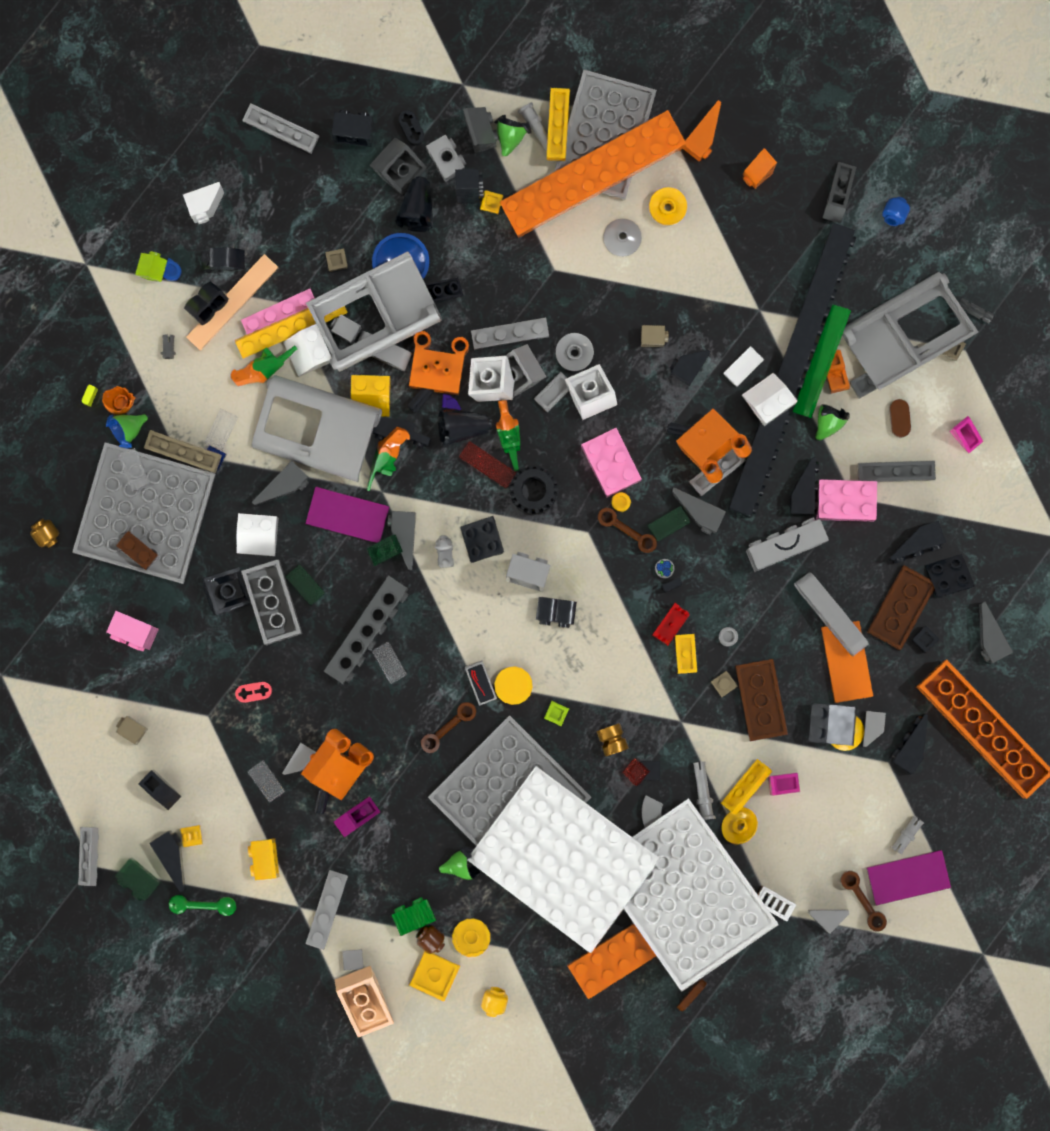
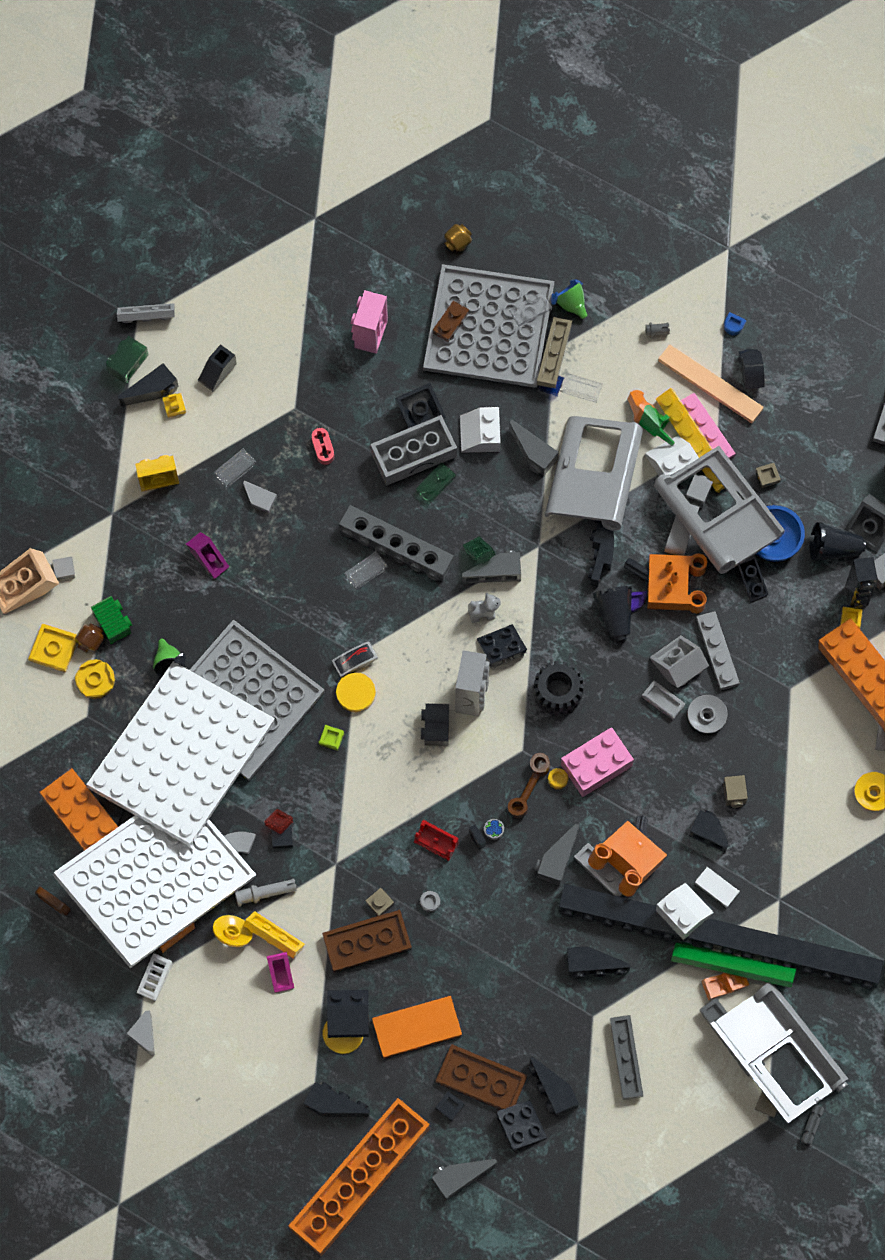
camera: 85 degrees right, 15 degrees down
(89, 395) = (598, 263): neon yellow tile -> none
(118, 400) = (597, 287): orange hair -> none
(131, 729) = (273, 337): dark tan brick -> none
(151, 266) = (734, 303): lime brick -> none
(204, 202) = (805, 342): white slope -> none
(206, 303) = (705, 357): black brick -> none
(226, 906) = (107, 442): green piece -> none
(326, 909) = (112, 538): light grey plate -> none
(333, 770) = (250, 524): orange piece -> none
(347, 515) = (511, 514): magenta tile -> none
(372, 391) = (637, 522): yellow slope -> none
(387, 453) = (577, 542): animal -> none
(466, 711) = (323, 647): reddish brown piece -> none
(487, 465) = (580, 641): clear red tile -> none
(491, 379) = (666, 632): white slope -> none
(494, 1001) = (31, 706): yellow head -> none
(508, 433) = (615, 658): green animal -> none
(591, 392) = (667, 734): white slope -> none
(612, 739) = (309, 793): pearl gold wheel -> none
(625, 246) = (828, 758): light grey dish -> none
(669, 523) = (540, 828): clear green plate -> none
(686, 653) = (407, 859): yellow plate -> none
(787, 545) = (532, 946): light grey brick -> none
(830, 421) = (671, 980): bright green hat -> none
(831, 614) = (465, 1001): light grey beam -> none
(847, 500) = (588, 1006): bright pink brick -> none
(850, 880) = (146, 1084): reddish brown piece -> none
(873, 726) = (350, 1061): light grey tile -> none
(900, 418) = (684, 1056): reddish brown tile -> none
(907, 835) = (238, 1108): light grey pin -> none
(908, 877) = (193, 1115): magenta tile -> none
(967, 434) = (676, 1127): dark pink slope -> none

